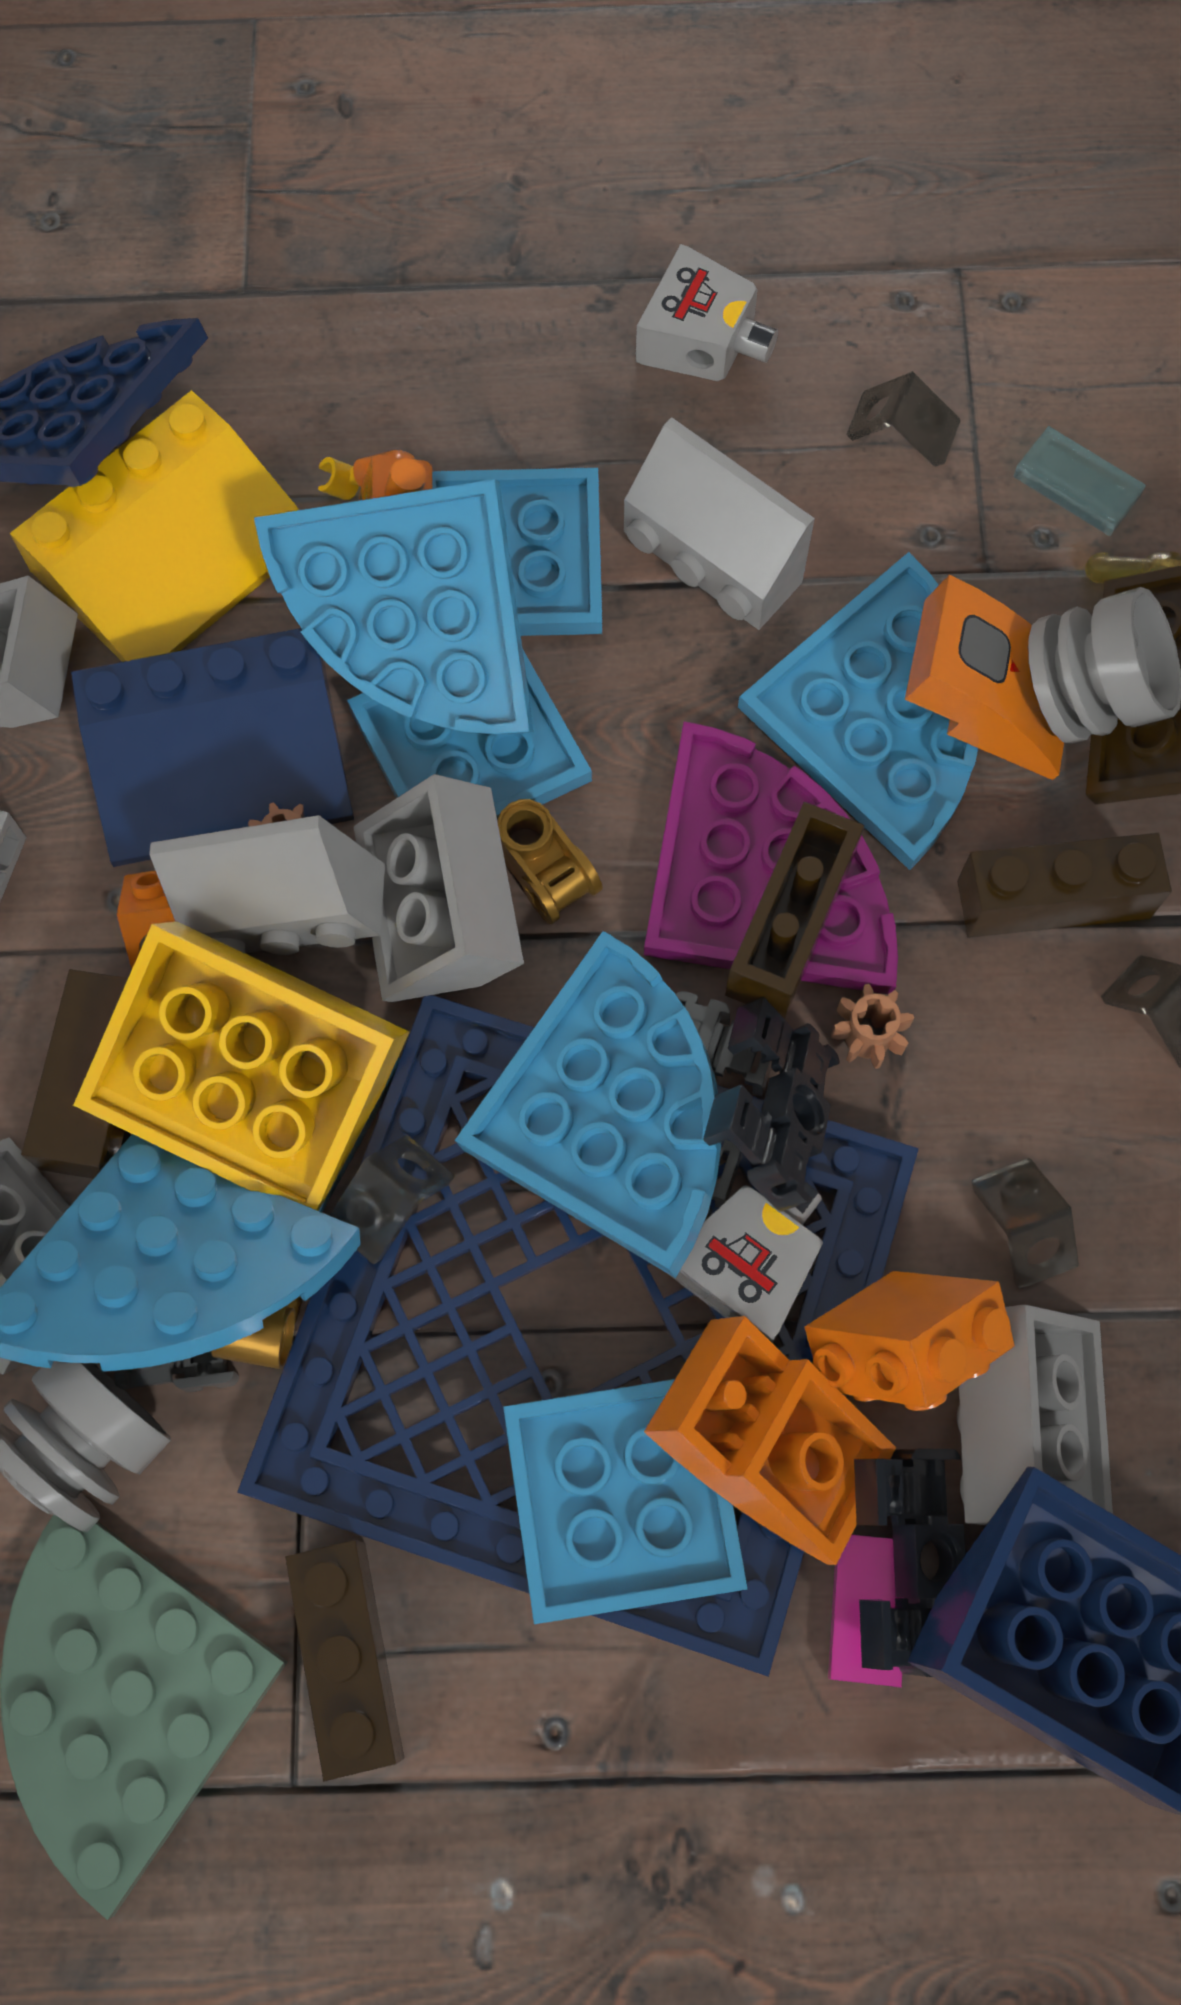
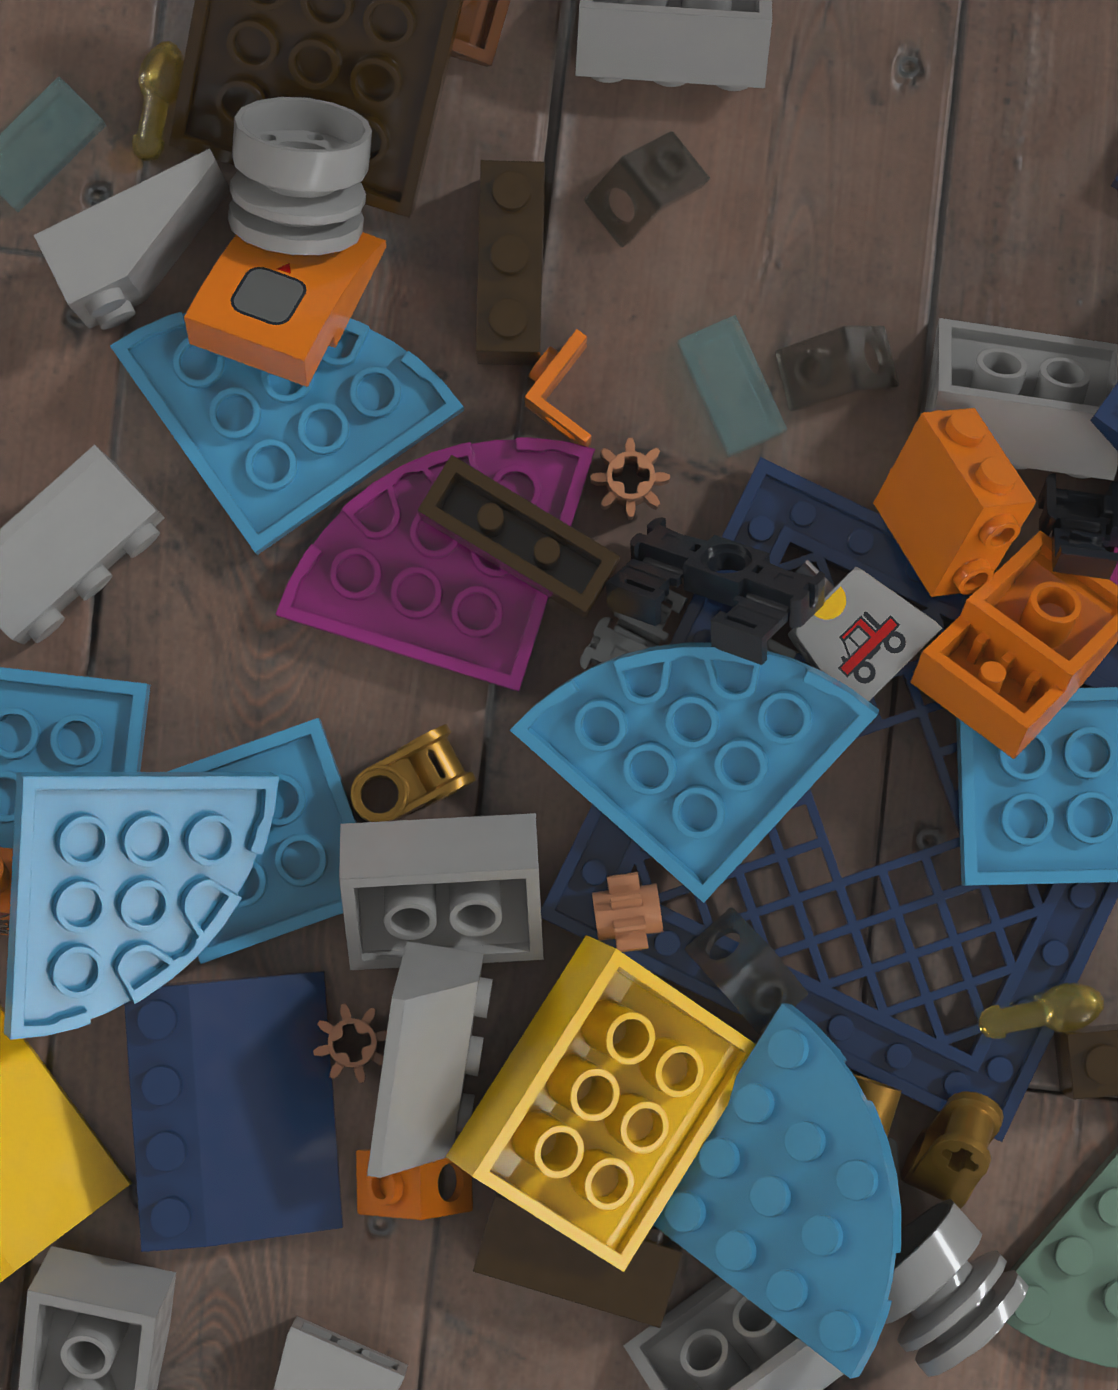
camera: 85 degrees left, 15 degrees up
(225, 1440) = (954, 1149): none -> pearl gold piece
(384, 1534) = (1059, 1009): none -> clear yellow piece
(436, 1065) = (627, 912): none -> nougat gear
(959, 938) = (547, 375): none -> orange bracket
(984, 1118) = (731, 386): none -> clear light blue tile
(1010, 541) = (128, 243): none -> light grey slope

